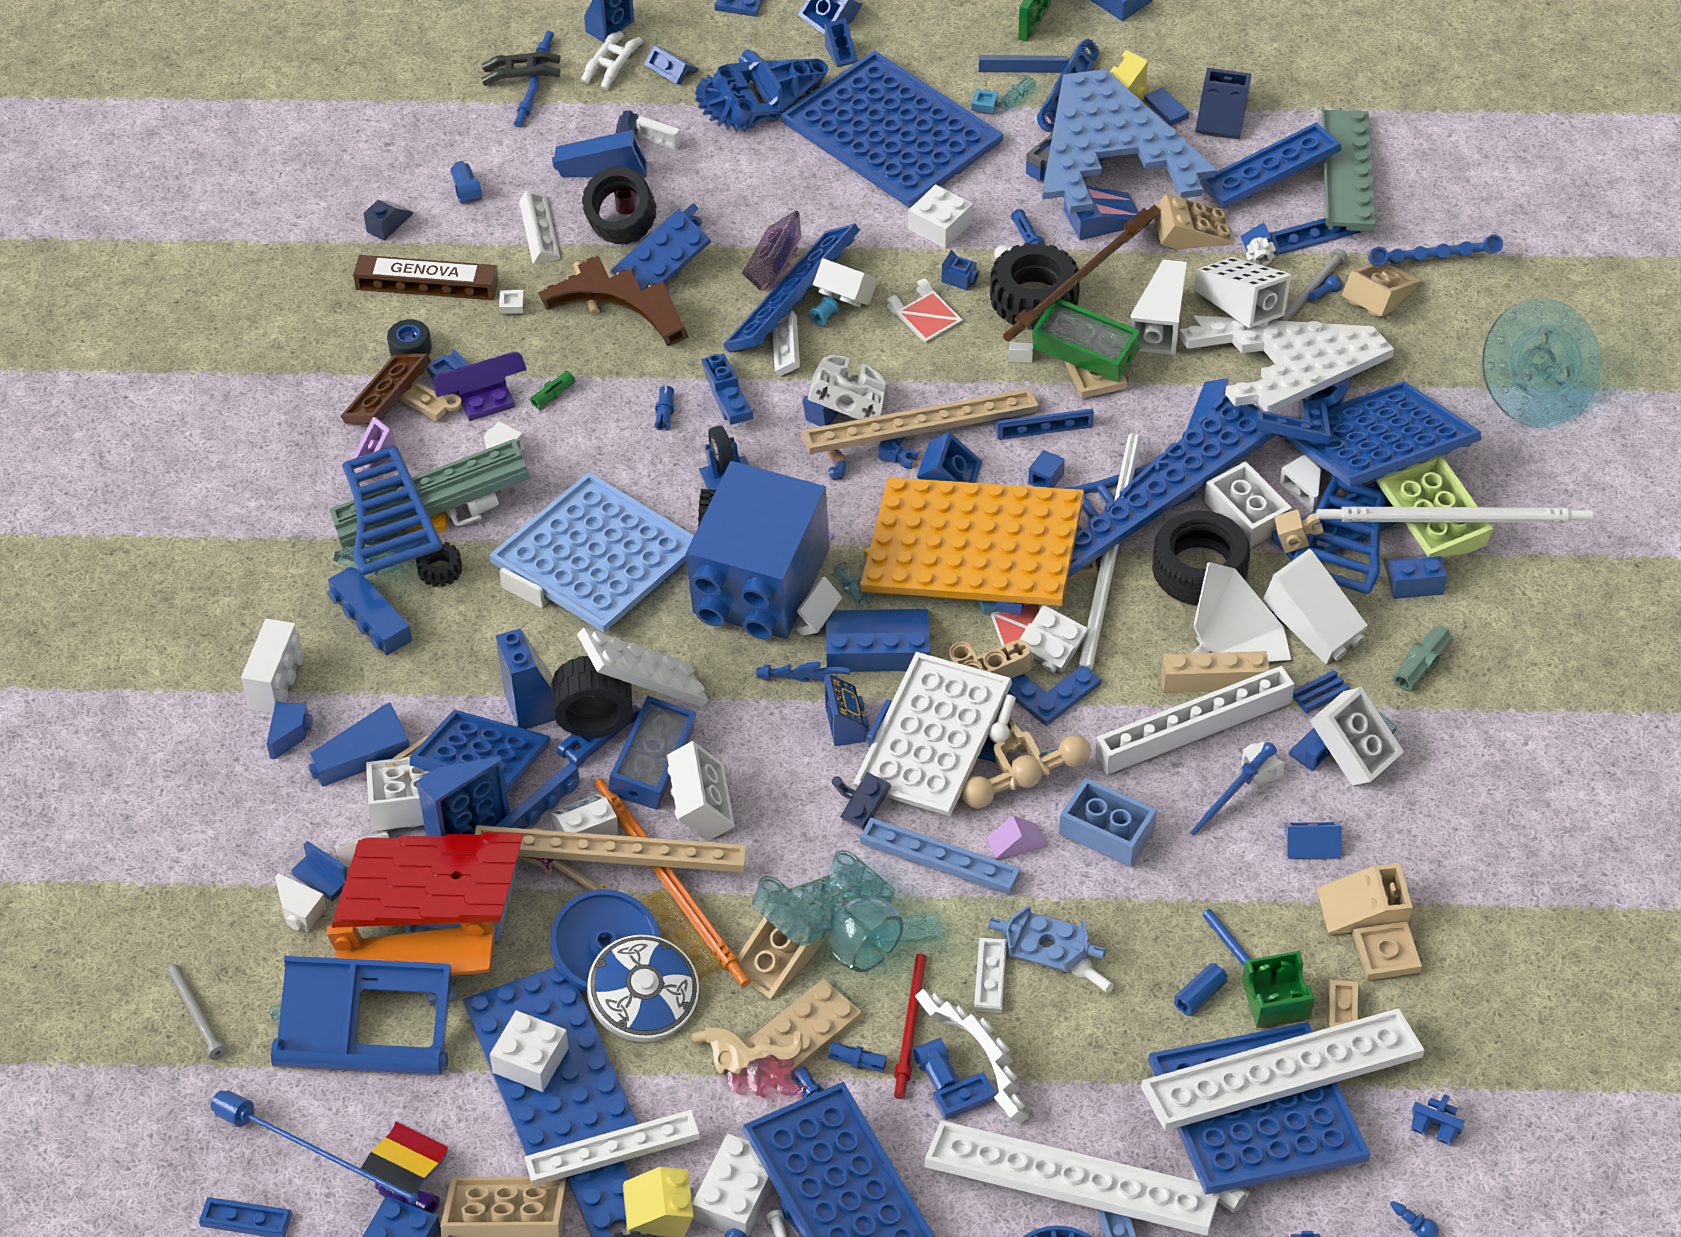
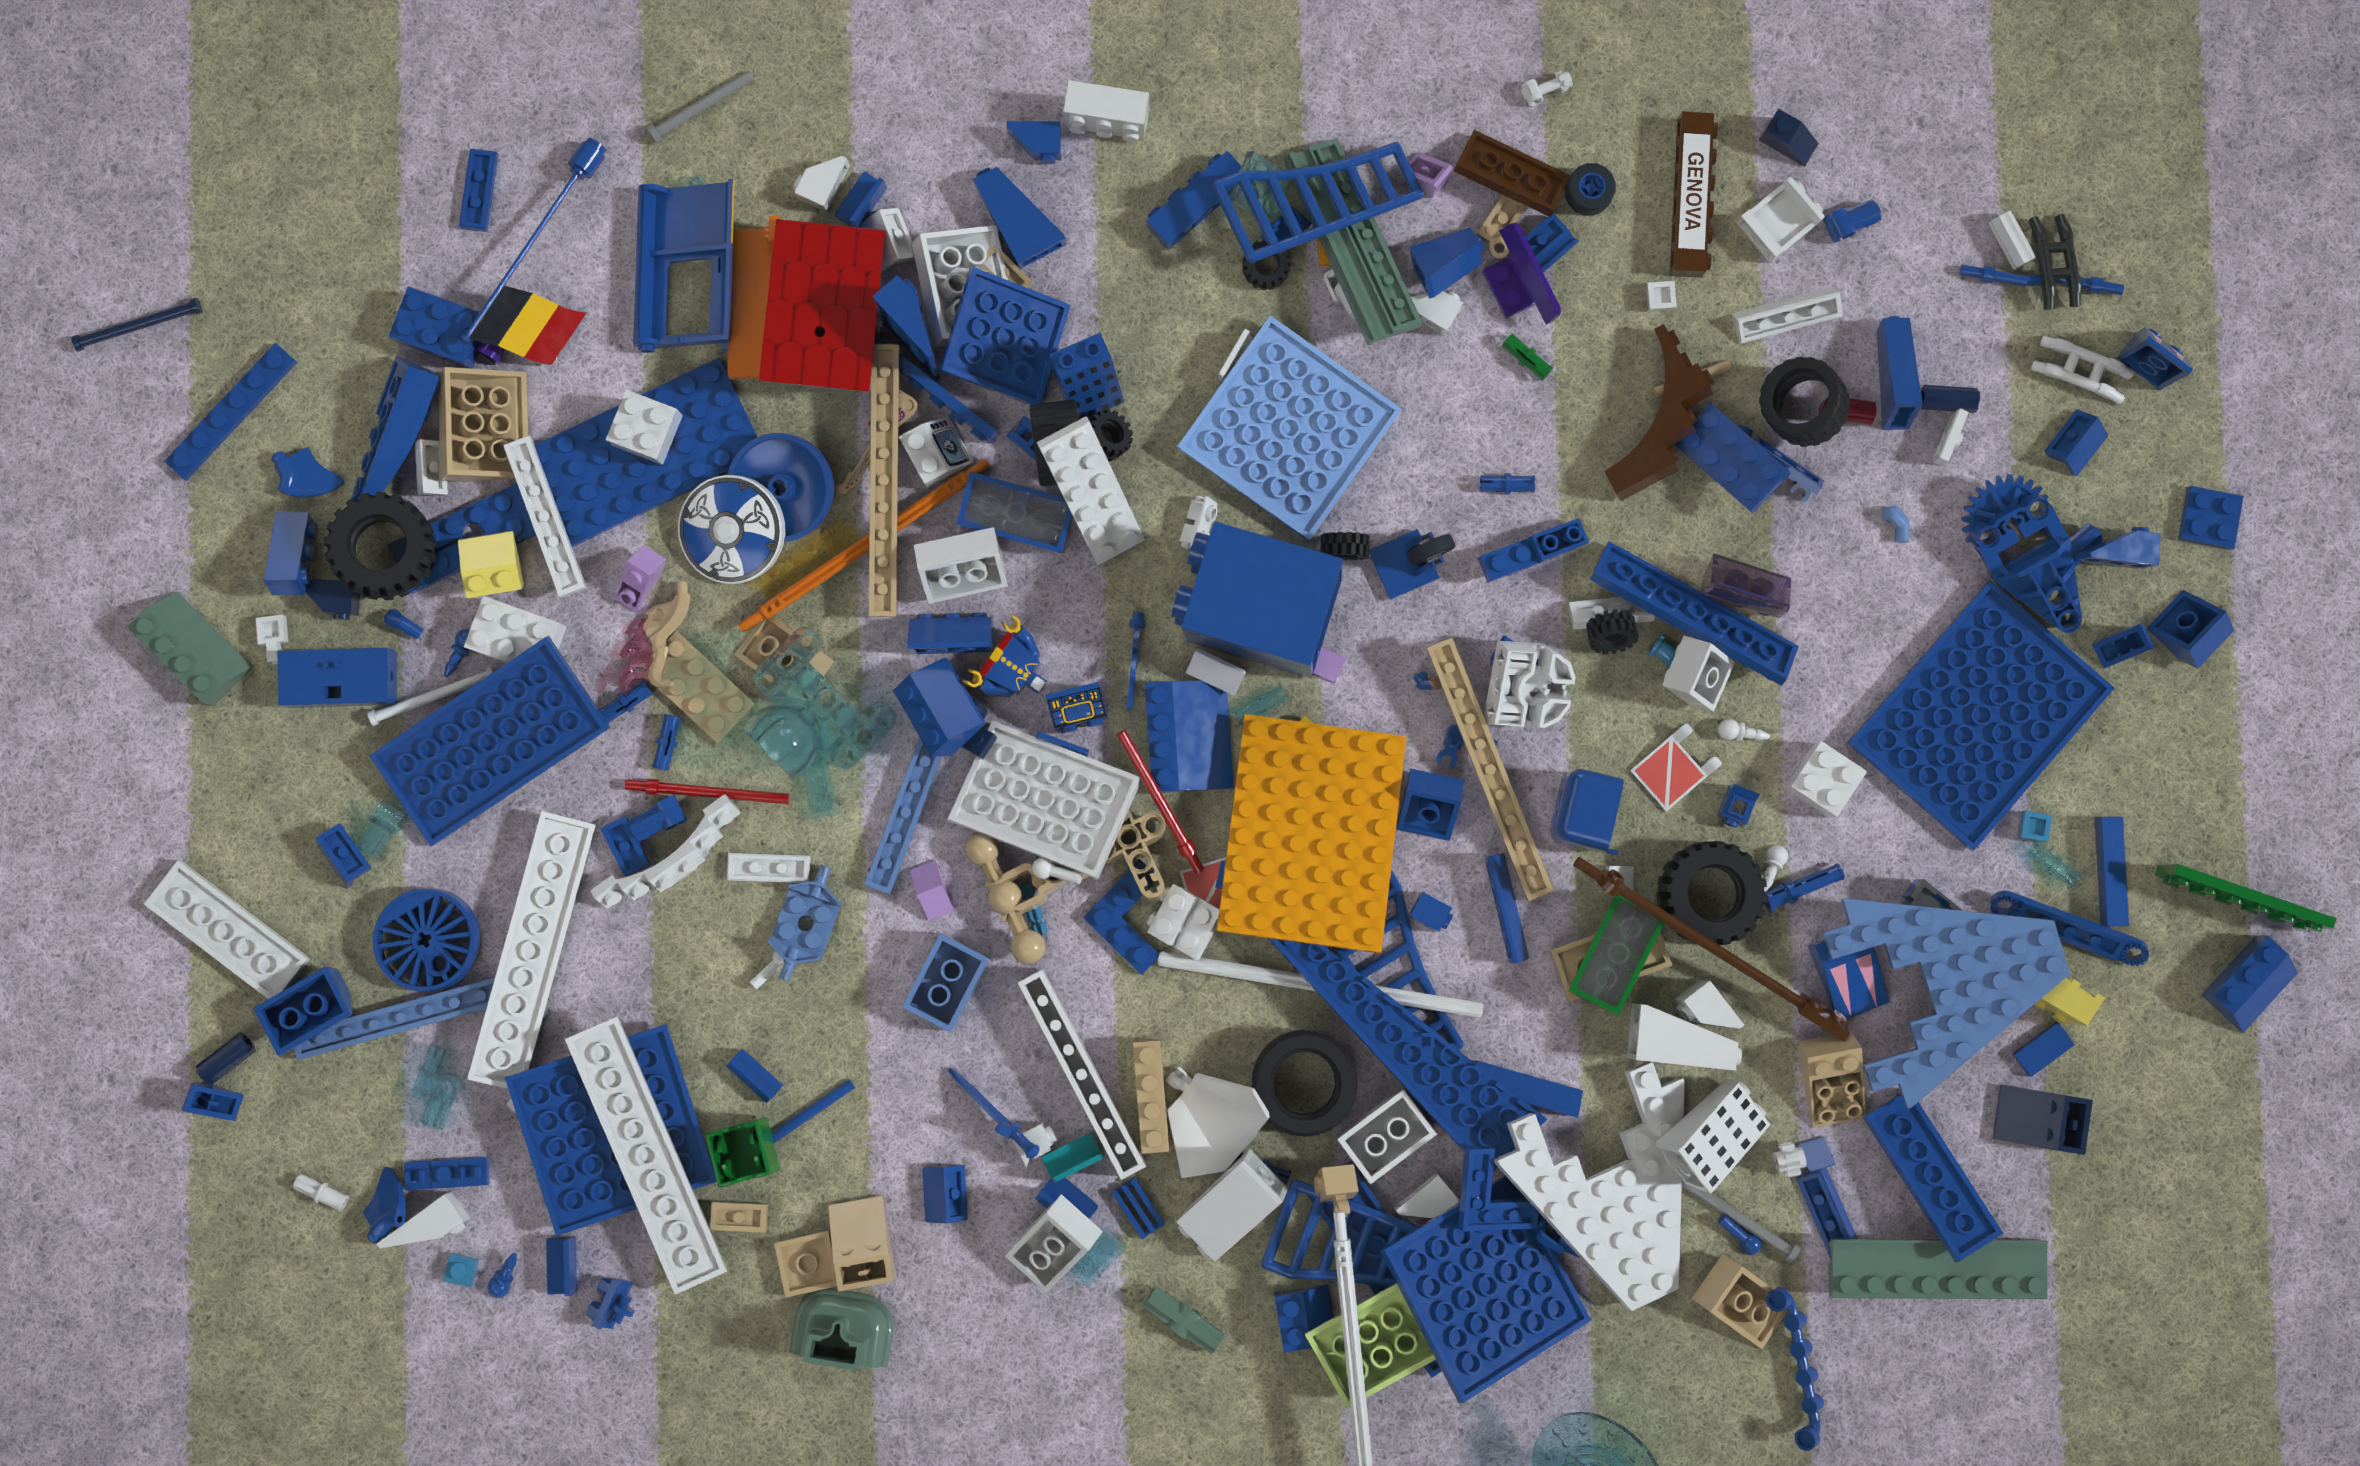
camera: 85 degrees right, 35 degrees up
(313, 376) = (1533, 92): none -> white bar
(456, 225) = (1781, 219): none -> white panel
(457, 434) = (1446, 260): none -> blue slope
(498, 92) = (2012, 240): none -> white axle
(668, 618) = (1203, 512): none -> white hinge
(685, 1072) = (639, 577): none -> lavender slope
(726, 167) = (1900, 521): none -> medium blue arm
(762, 36) = (2127, 549): none -> blue slope
(766, 807) = (950, 634): none -> blue slope
(797, 763) = (1010, 665): none -> blue torso
(804, 336) = (1612, 631): none -> black tyre
(838, 808) = (939, 708): none -> blue slope
(895, 270) = (1730, 729): none -> white bar
(961, 353) = (1587, 810): none -> blue piece
(981, 637) = (1185, 846): none -> red bar
(1127, 287) = (1706, 1005): none -> white slope
(1278, 731) = (1072, 1157): none -> teal panel
(1401, 1163) = (561, 1265): none -> blue panel
(1450, 921) = (843, 1321): none -> sand green piece

